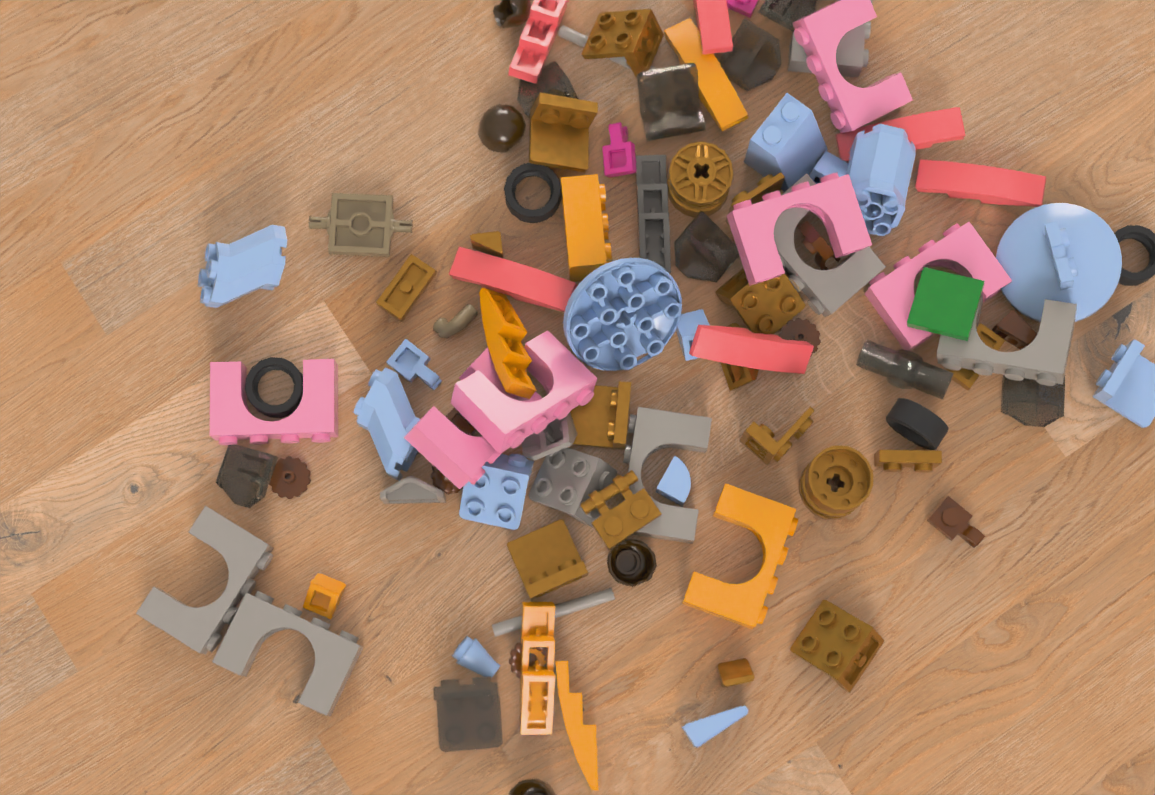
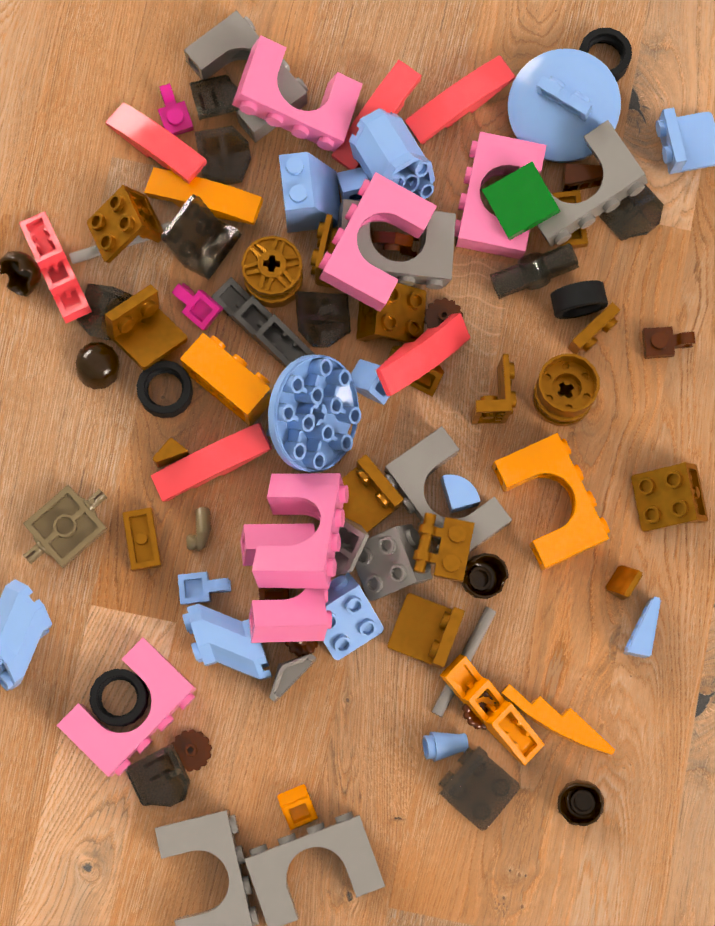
camera: 50 degrees left, 0 degrees up
(504, 337) = (248, 508): light orange slope -> none

